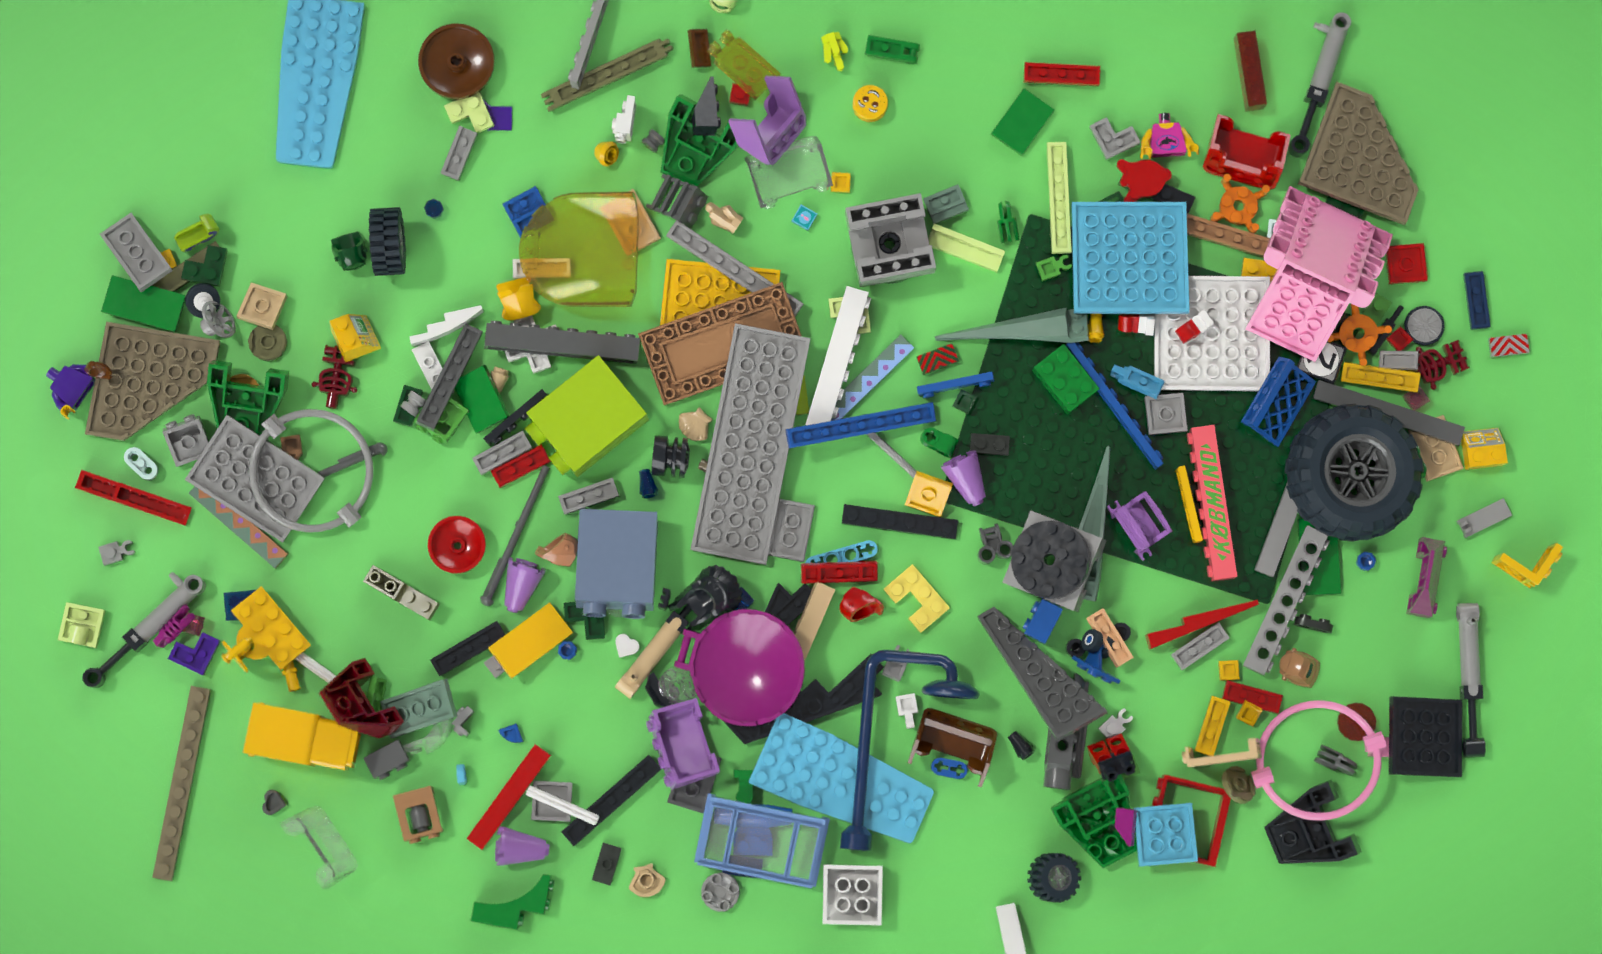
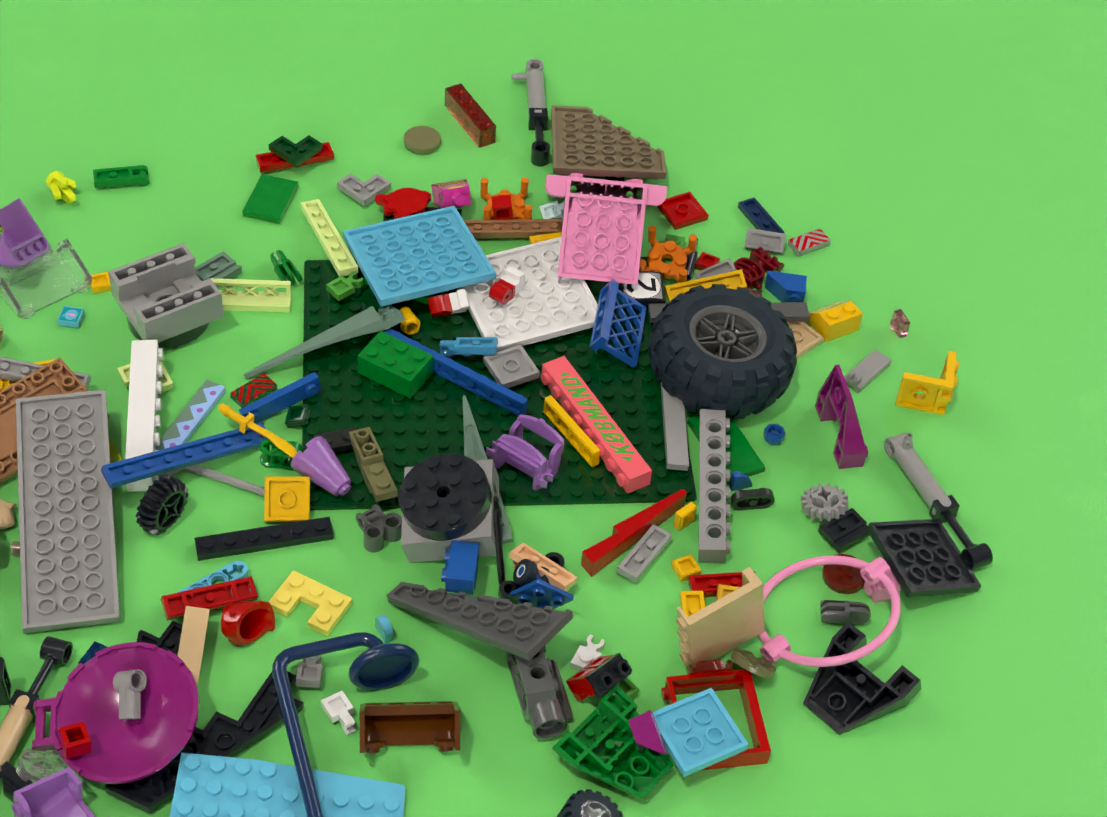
camera: 20 degrees left, 35 degrees down
(710, 596) = (56, 654): black piece -> none
(710, 673) = (75, 740): none -> red plate
(756, 648) = (129, 686): none -> light grey piece
(791, 530) = (140, 581): light grey tile -> none
(826, 469) = (162, 504): none -> black gear
(870, 103) = (111, 217): yellow head -> none
(939, 435) = (248, 422): none -> yellow sword
(950, 763) = (414, 758): blue beam -> none
(965, 644) = (384, 628): none -> tile
(1009, 485) = (372, 465): none -> olive slope
(1021, 746) = (491, 707): black cone -> none
(1061, 78) = (295, 153): none -> dark green plate
(1086, 590) = (498, 542): none -> black piece
(1167, 140) = (417, 174): torso -> none
(1192, 86) = (422, 140): none -> olive tile
(1192, 180) = (453, 193): none -> dark pink torso
(1201, 779) = (710, 666): none -> clear red tile
(1231, 216) = (502, 207): none -> red plate
(1245, 155) = (501, 173): red windscreen -> none
(1249, 622) = (685, 516): none -> yellow tile
(1299, 668) = (758, 540): medium nougat helmet -> none
(1311, 600) = (739, 481): none -> tile
(1377, 682) = (845, 530): none -> black plate
(1380, 652) = (824, 502): none -> light grey gear
(1424, 325) = (724, 246): light grey wheel -> none
(1458, 400) = (786, 286): none -> blue slope
(1465, 333) = (766, 239): none -> light grey plate
(1540, 477) = (900, 323): none -> plate

